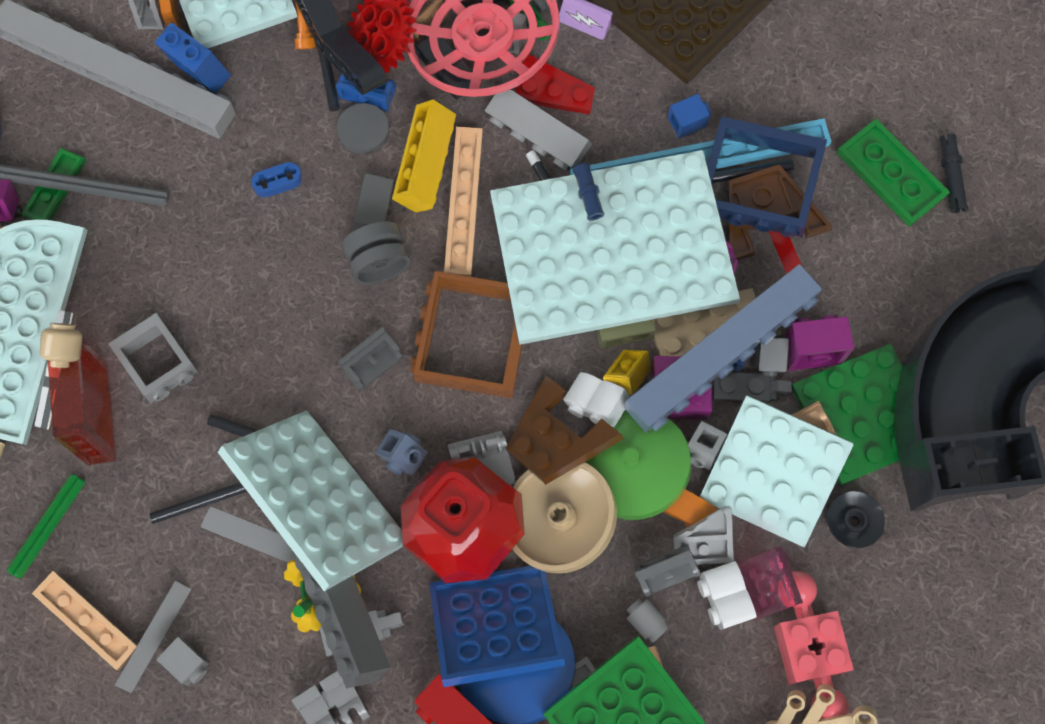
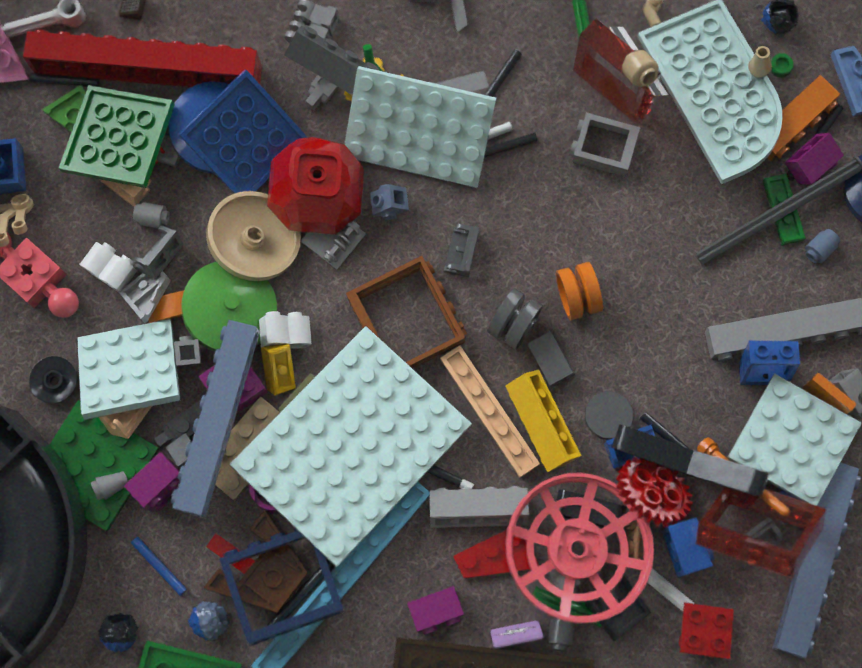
camera: 150 degrees right, 5 degrees up
(53, 129) = (822, 246): none -> sand blue brick
(276, 179) = (631, 326): blue beam -> none
(297, 235) = (579, 290): none -> orange wheel
(548, 445) = (295, 275): reddish brown wing -> none
(588, 192) = (394, 464): dark blue pin -> none
(638, 78) = (435, 610): none -> magenta brick
(689, 116) = (374, 606): blue brick -> none
(770, 582) = (84, 289): clear pink plate -> none
(844, 200) = (208, 620): none -> sand blue piece
(859, 282) = (159, 566): none -> blue bar
(864, 373) = (109, 485): none -> light grey cone
(934, 245) = (118, 632): none -> black piece

